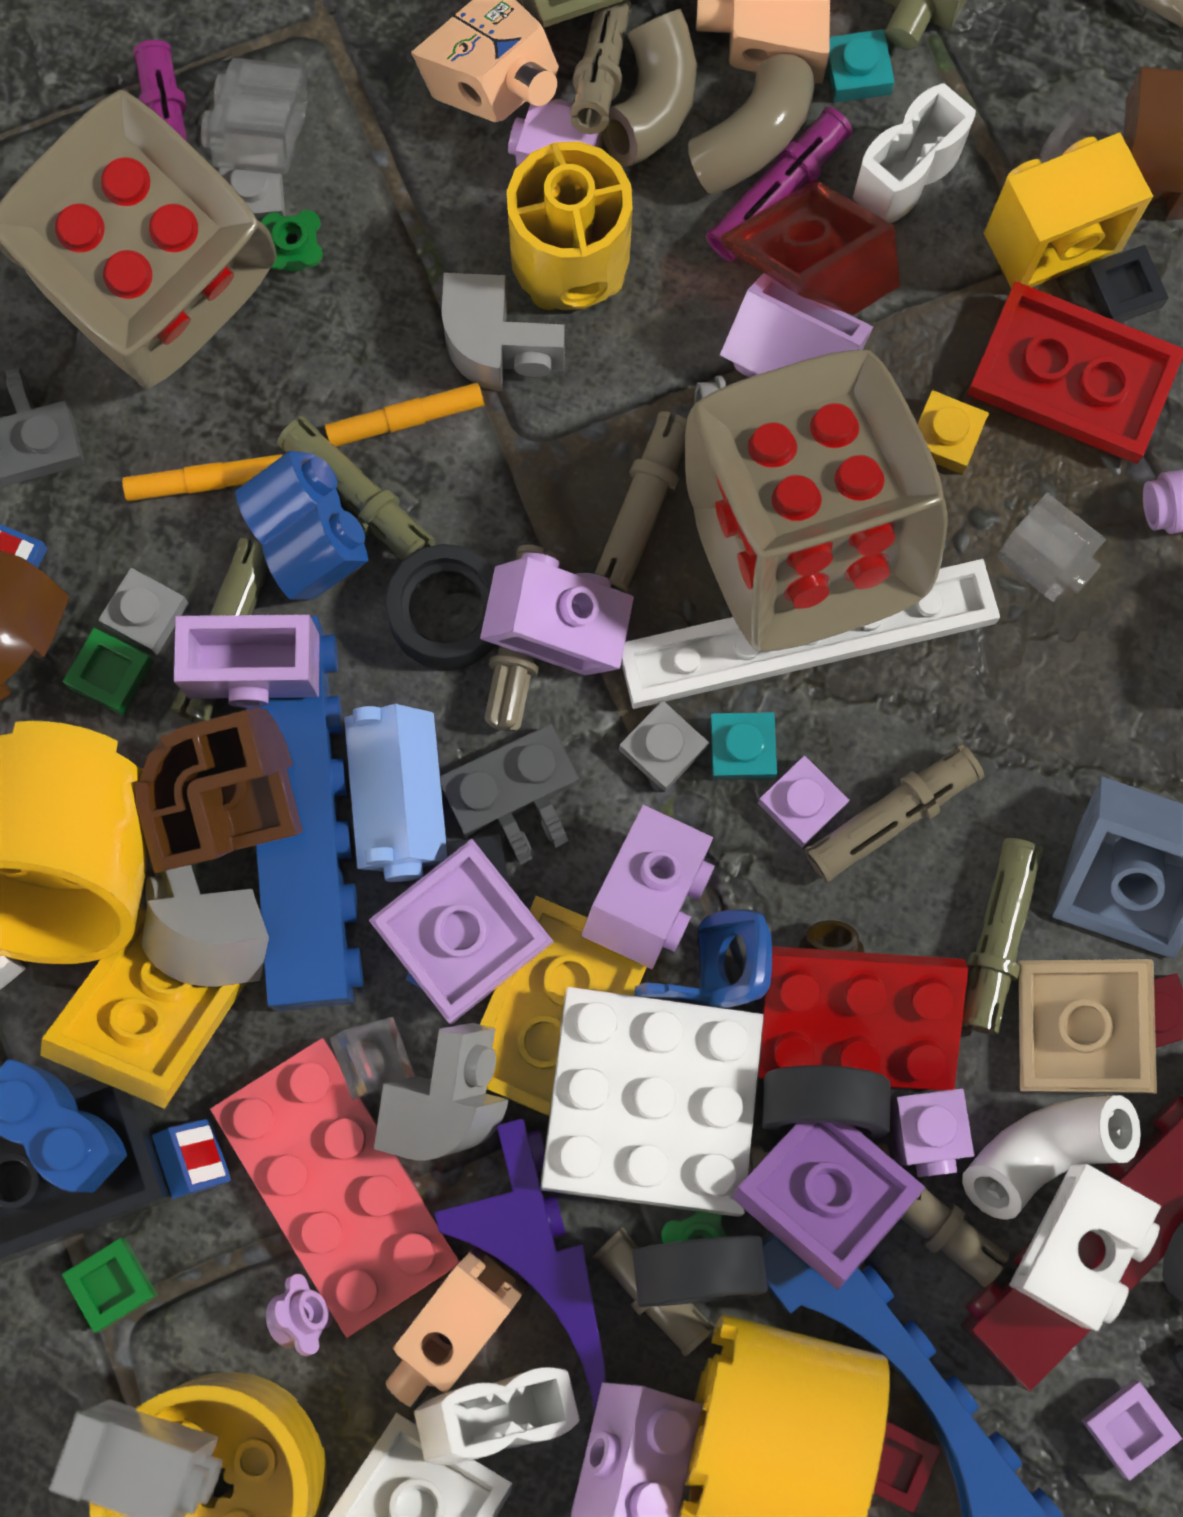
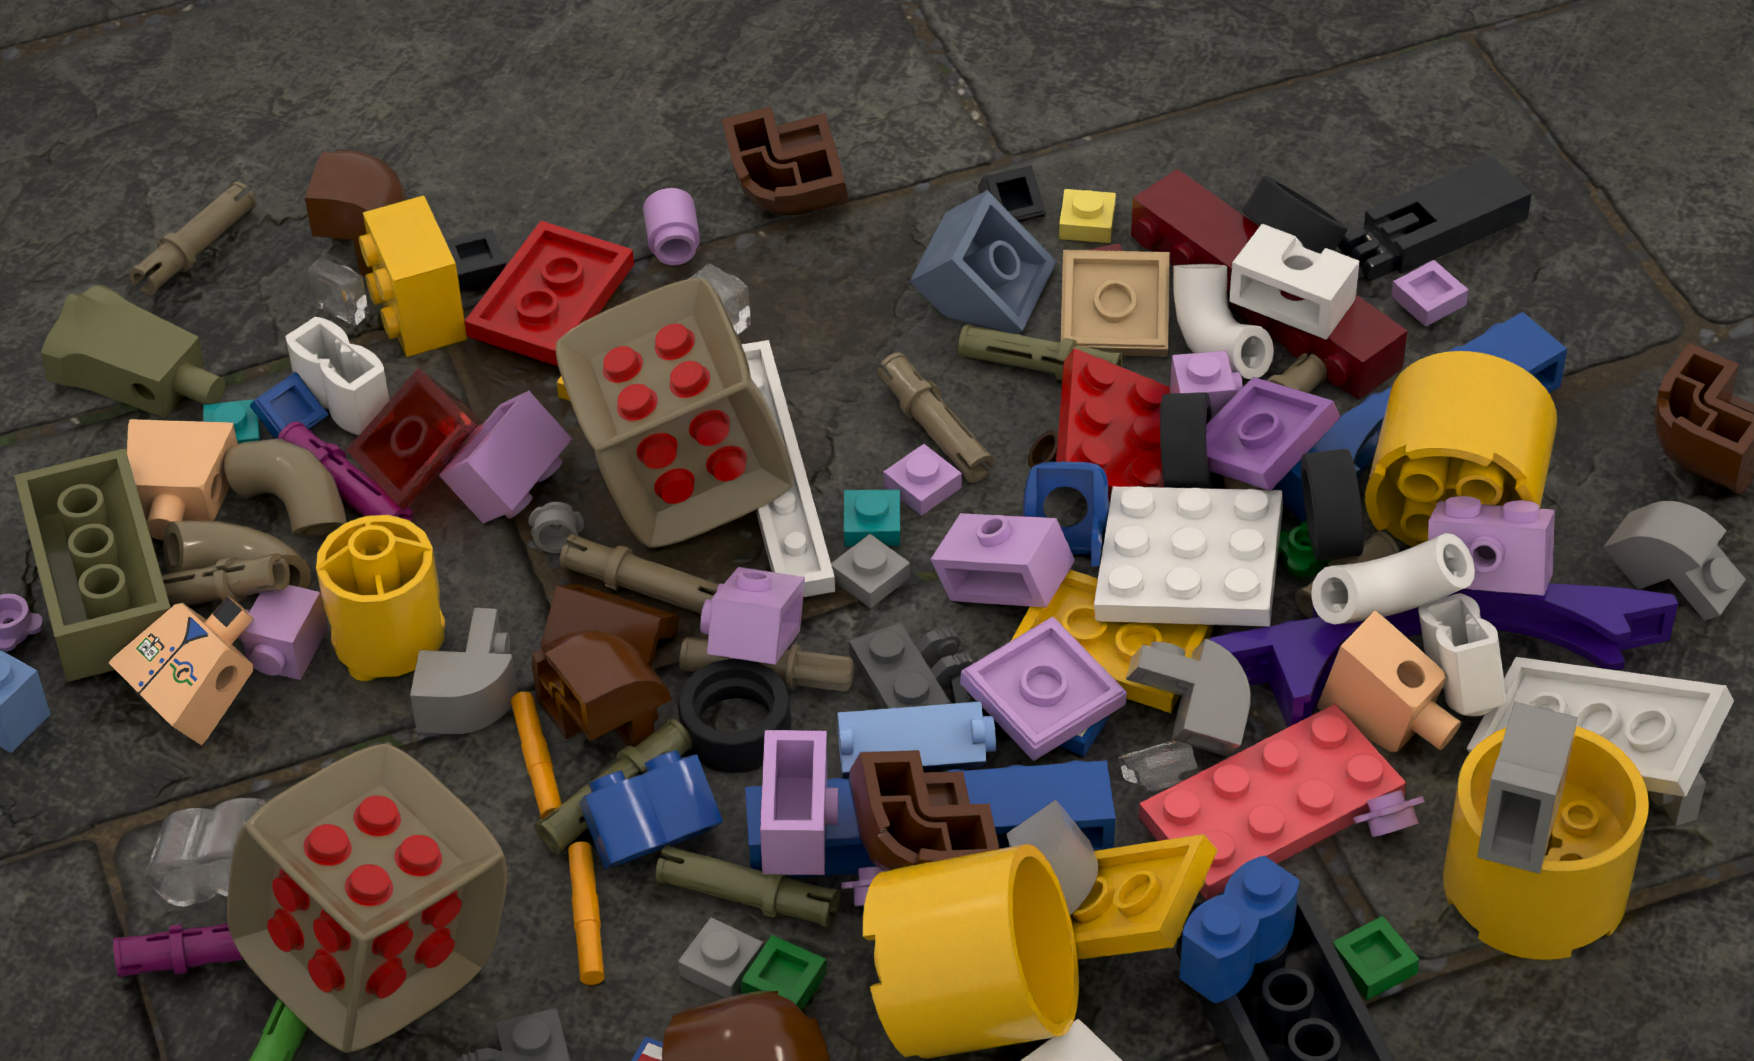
camera: 85 degrees left, 30 degrees down
(452, 458) = (597, 686): none -> reddish brown brick
(572, 471) = (585, 608): none -> reddish brown panel
(574, 1338) = (1393, 582): none -> white cylinder
(875, 109) = (288, 403): none -> blue tile

